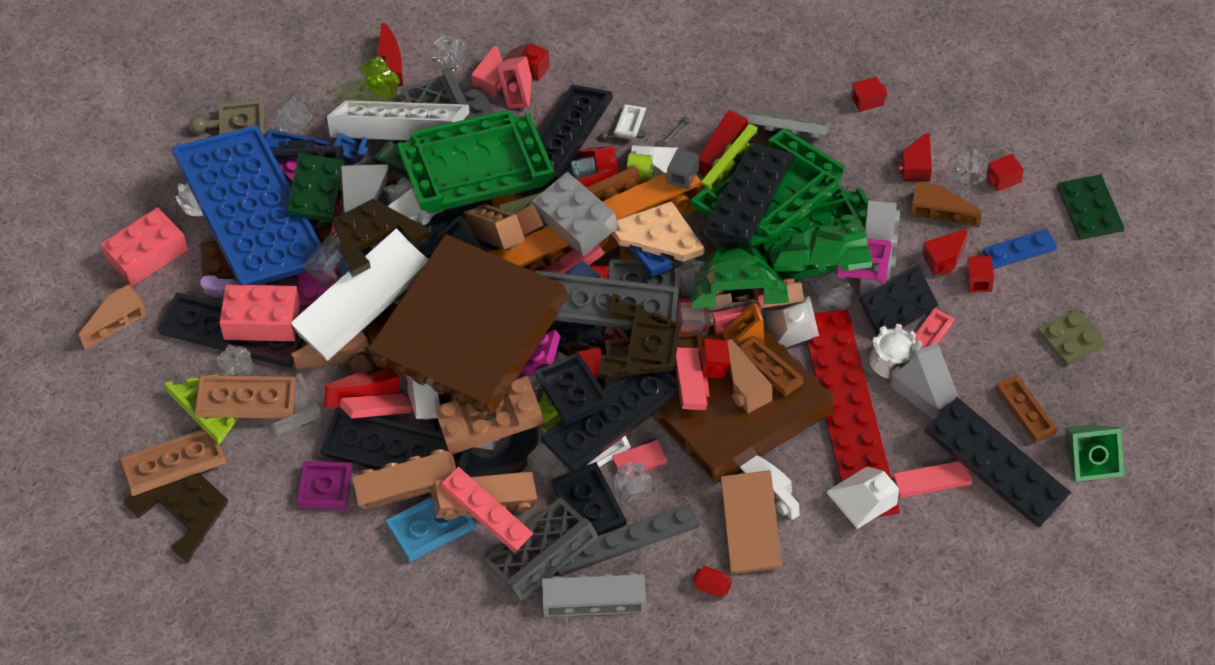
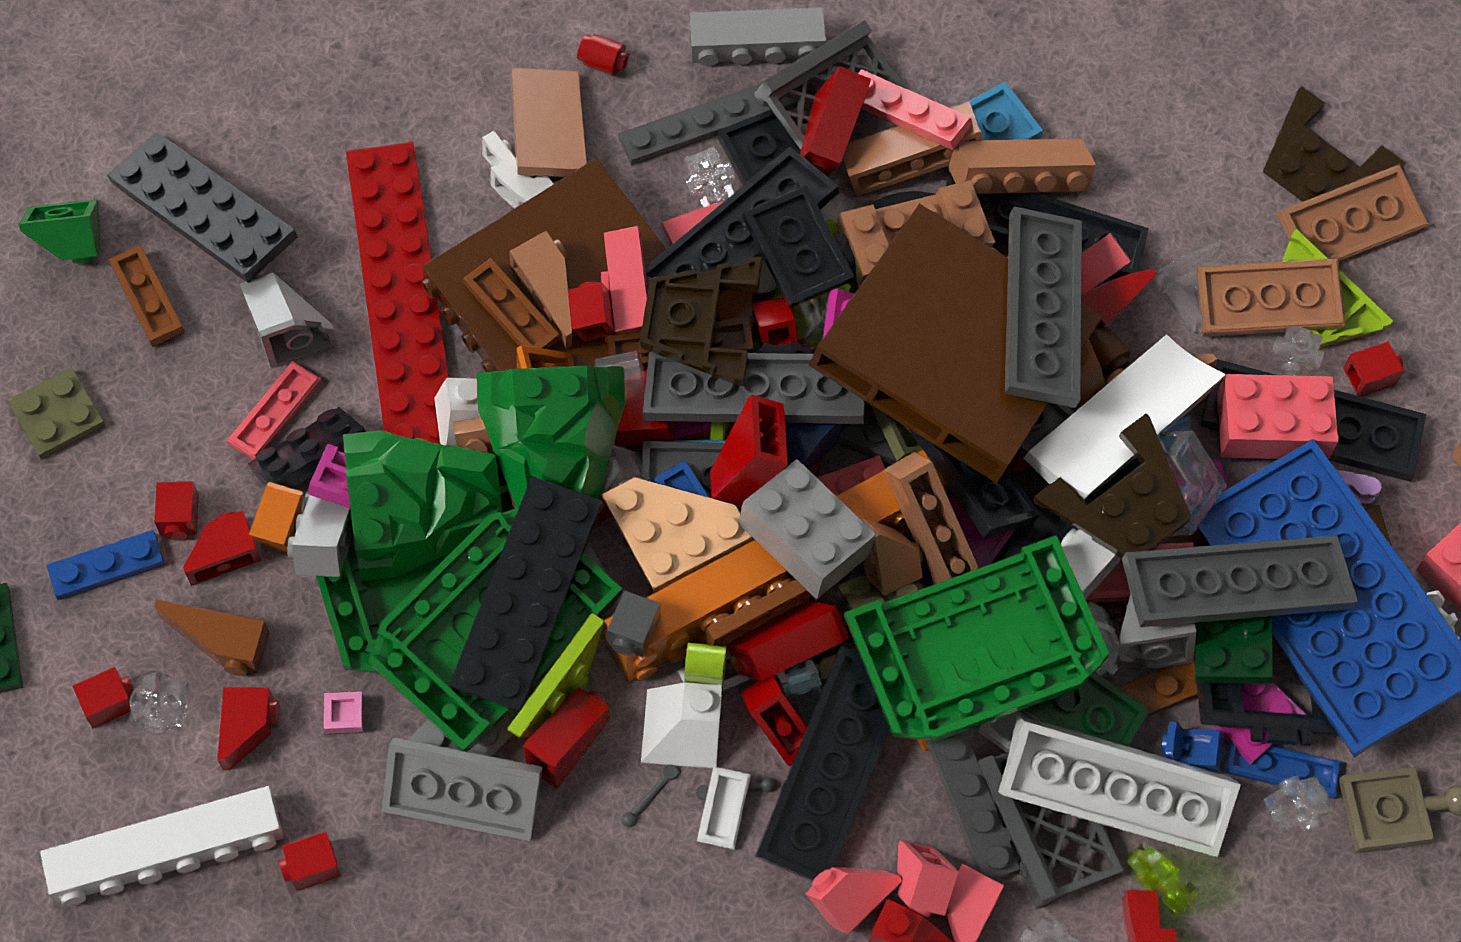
camera: 175 degrees right, 10 degrees up
(184, 357) = (1374, 369): none -> red brick
(309, 189) = (1238, 581): none -> dark grey plate
(325, 485) = (1134, 184): magenta plate -> none
(408, 337) = (1044, 307): none -> dark grey plate
(542, 501) = (833, 119): none -> red slope
(556, 77) = (850, 894): none -> coral slope
(608, 254) = (751, 452): none -> red slope
(858, 168) = (343, 712): none -> bright pink plate
(865, 495) = (390, 152): white slope -> none
(892, 350) = (325, 372): white hair -> none
(912, 250) = (277, 516): none -> orange slope
(932, 479) = (302, 196): coral tile -> none
(955, 101) = (161, 845): none -> white brick

